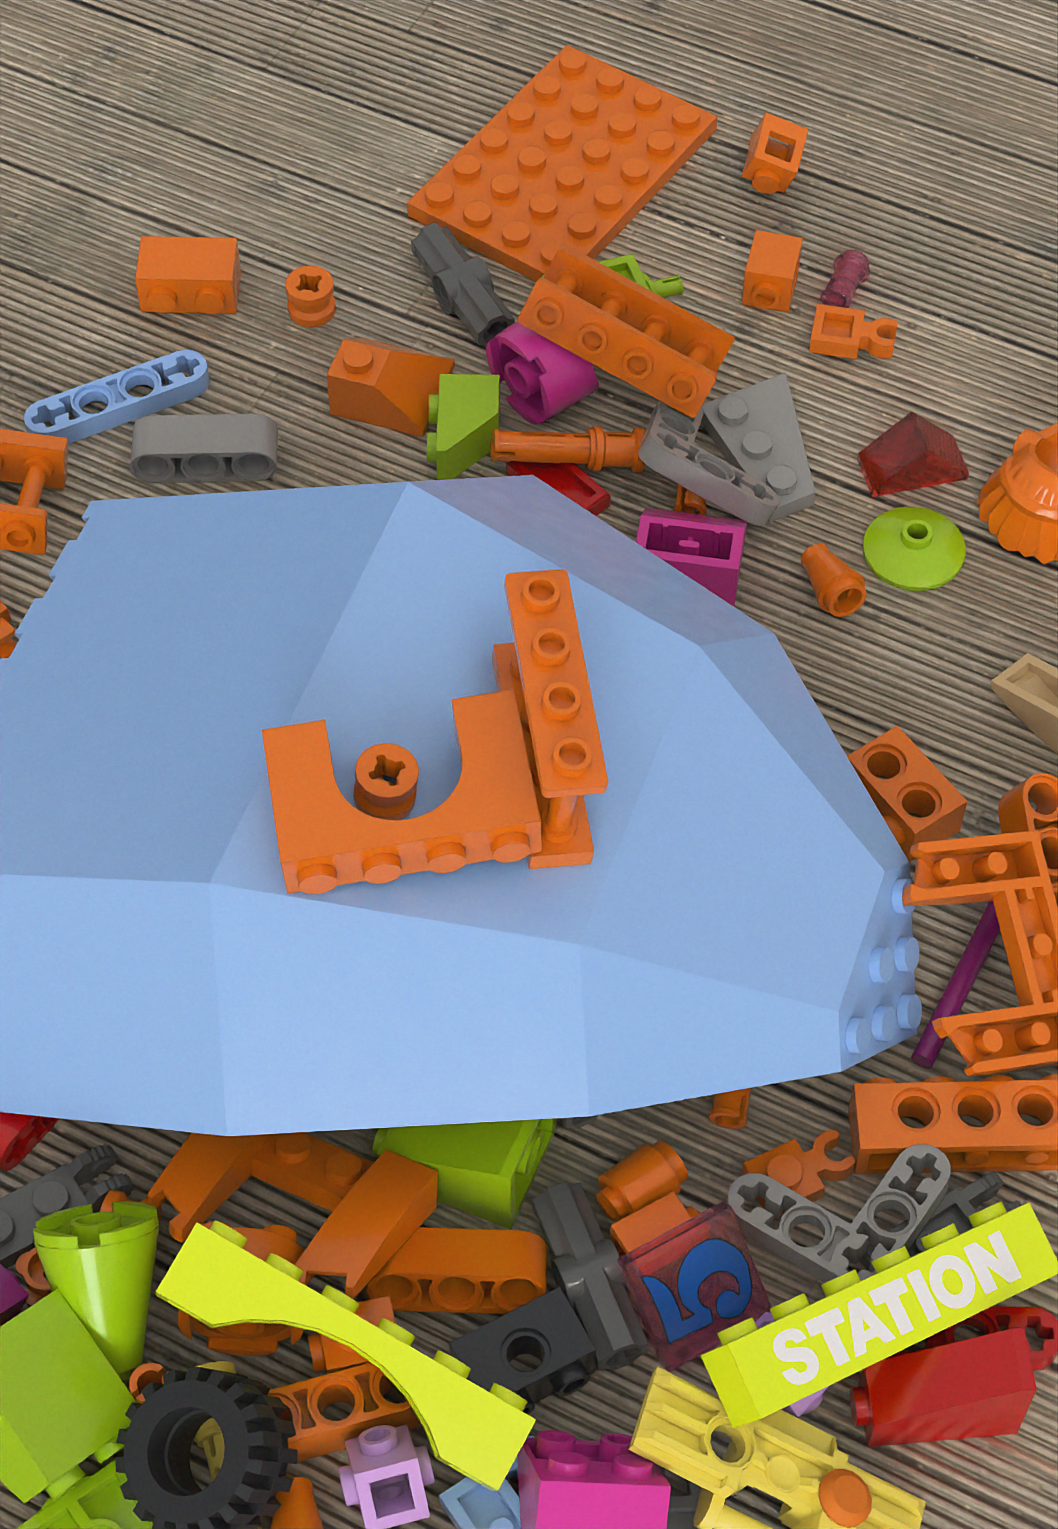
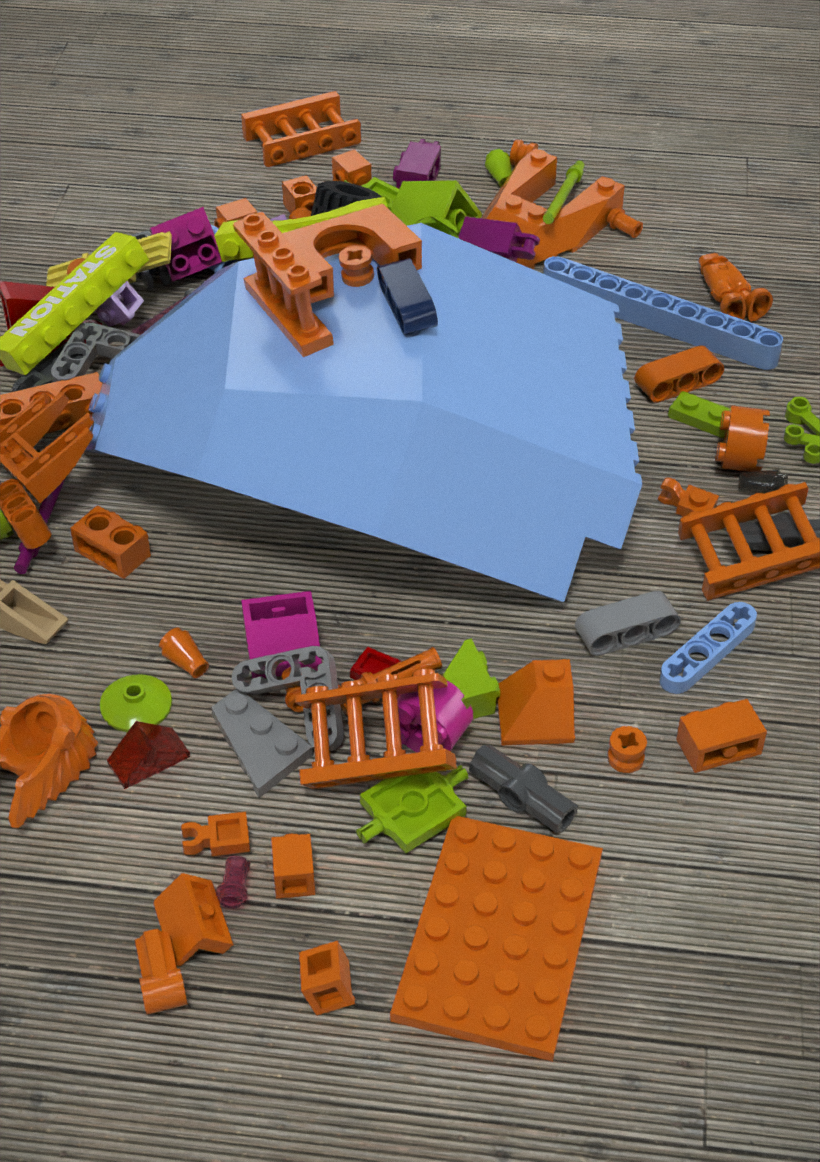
camera: 160 degrees right, 10 degrees down
(338, 661) = (407, 296): none -> dark blue beam
(902, 254) = (192, 917): none -> orange panel
(954, 205) = (160, 980): none -> orange piece

